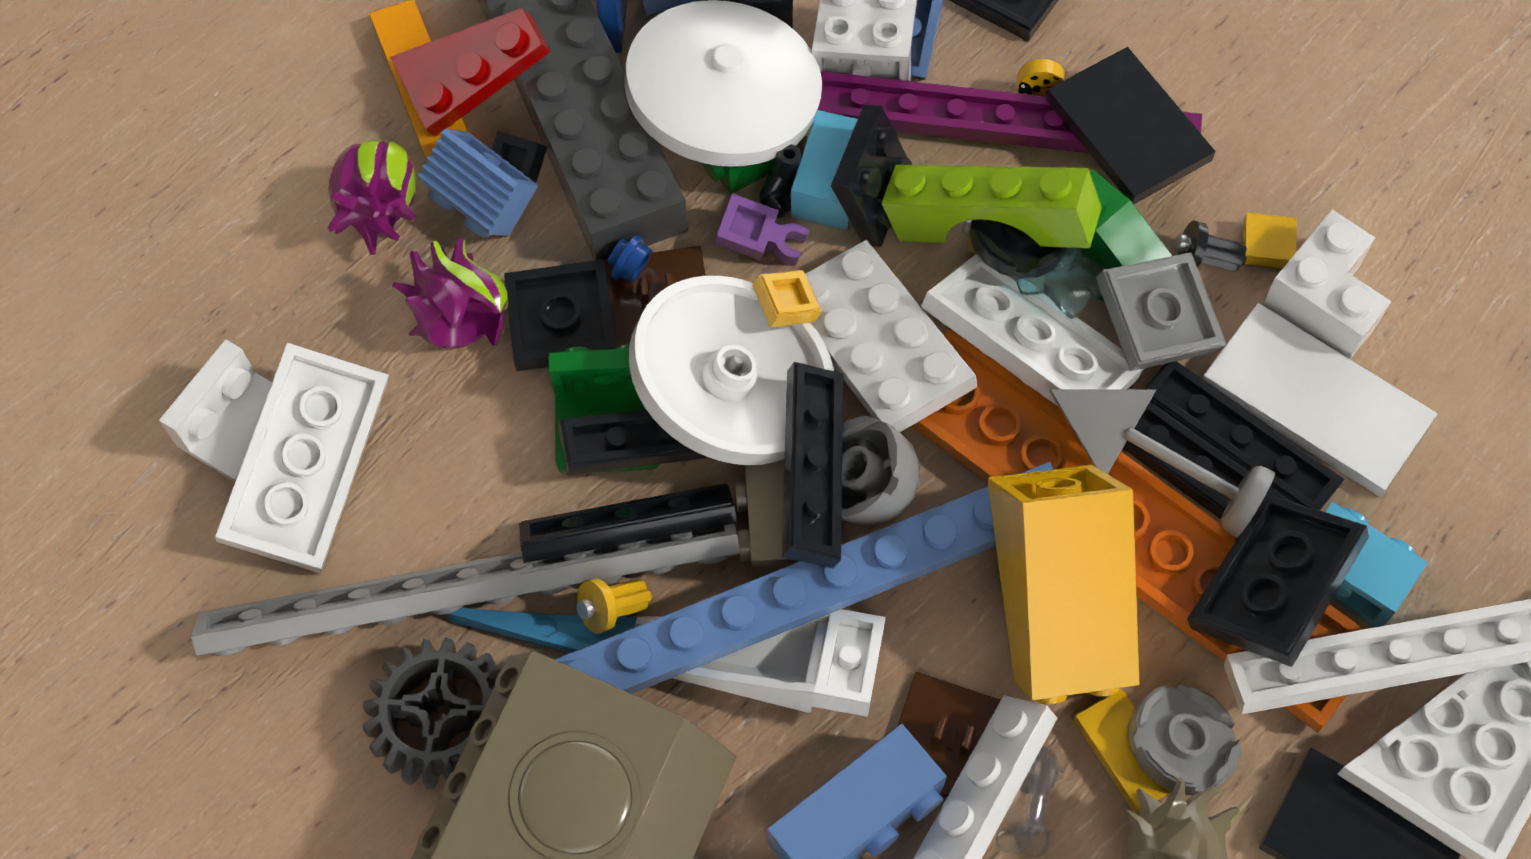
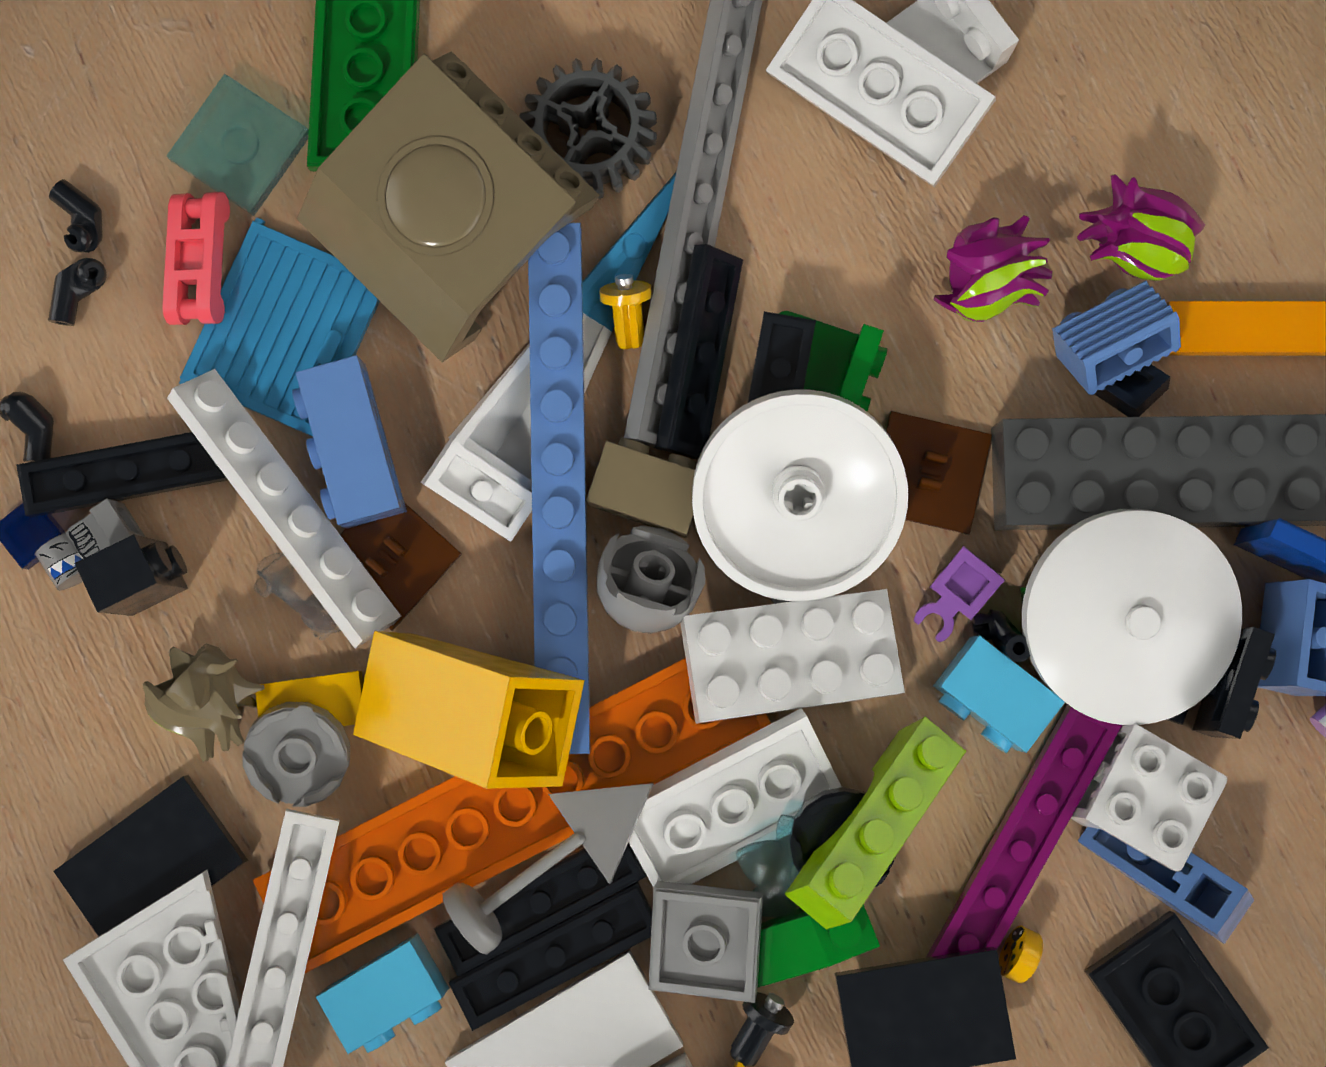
camera: 115 degrees right, 20 degrees up
(468, 67) = (1252, 368): red wing -> none
(558, 311) = (941, 369): black plate -> none
(629, 258) = (973, 453): blue plate -> none
(786, 298) = (858, 580): yellow tile -> none
(813, 466) = (669, 529): black tile -> none
(866, 172) = (970, 720): black plate -> none
(1278, 579) = (384, 905): black tile -> none

